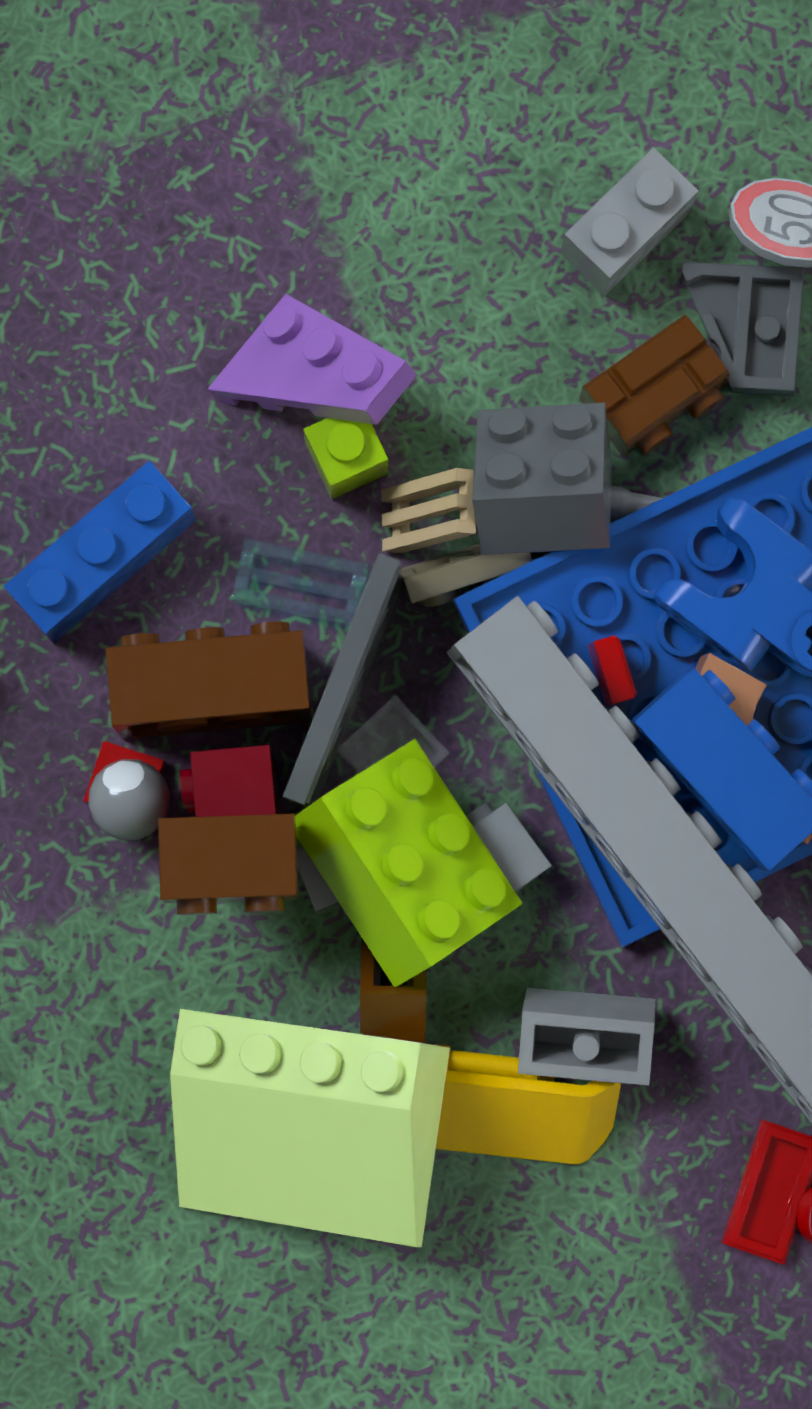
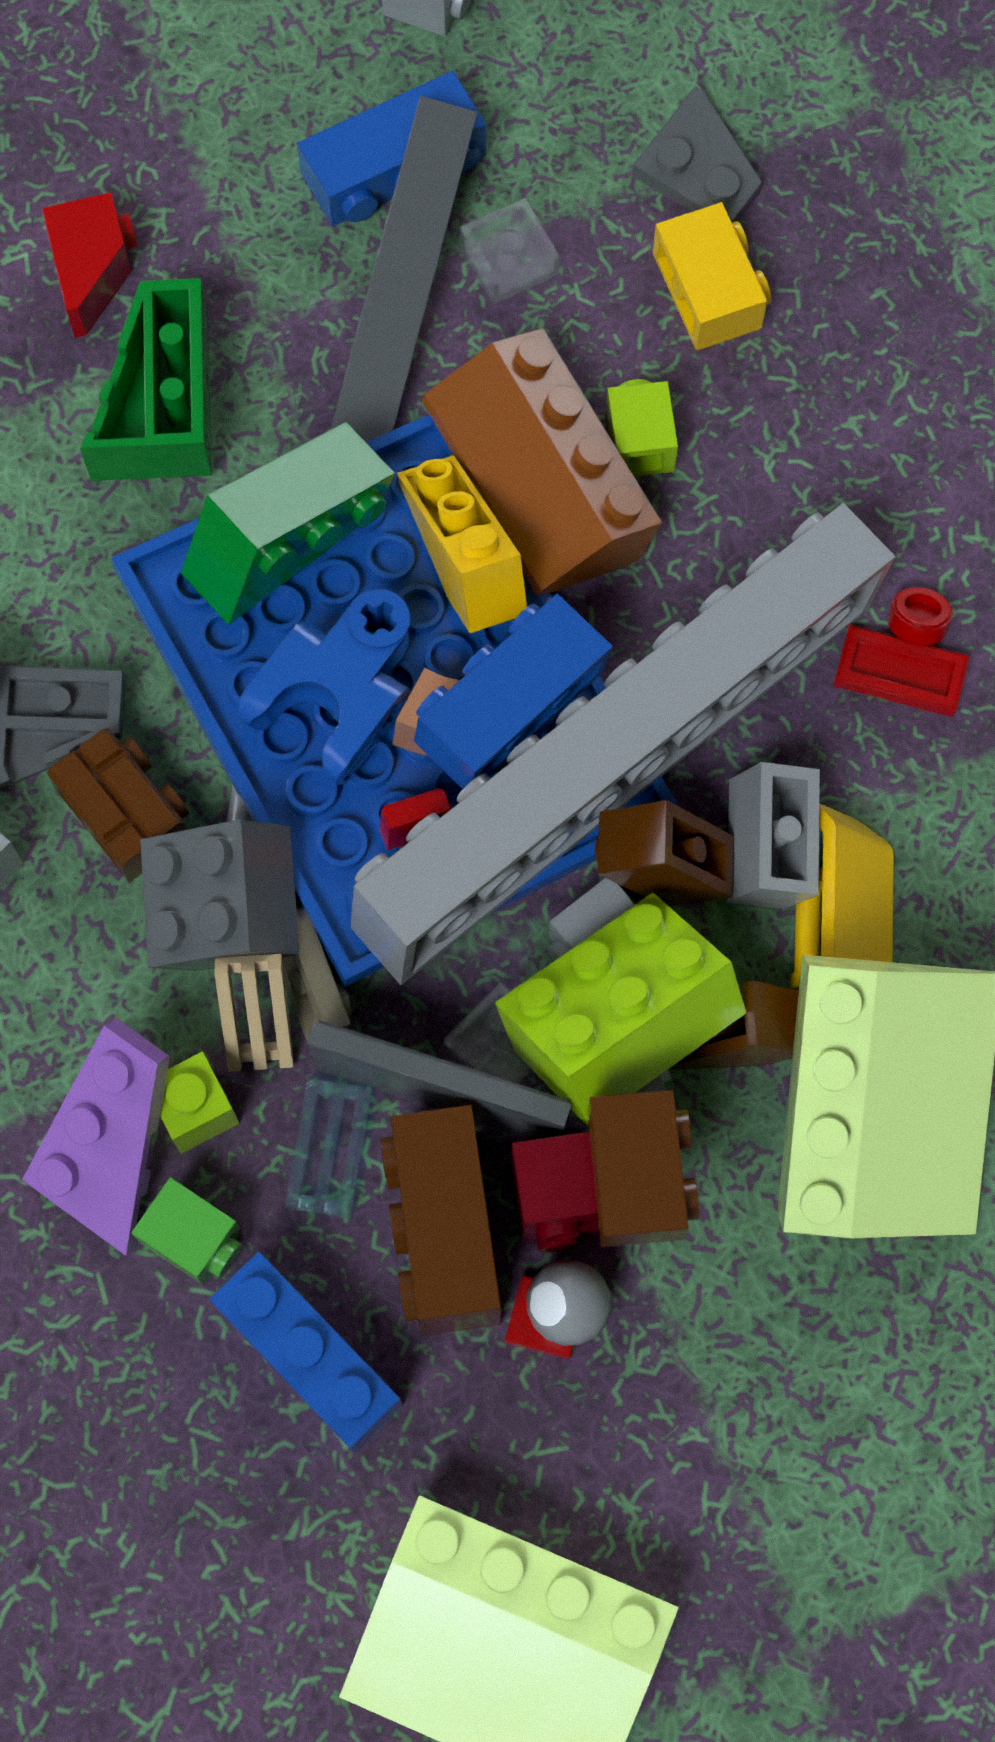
camera: 90 degrees left, 10 degrees down
(221, 447) = (189, 1233): none -> bright green brick
(567, 921) = (665, 853): none -> reddish brown brick

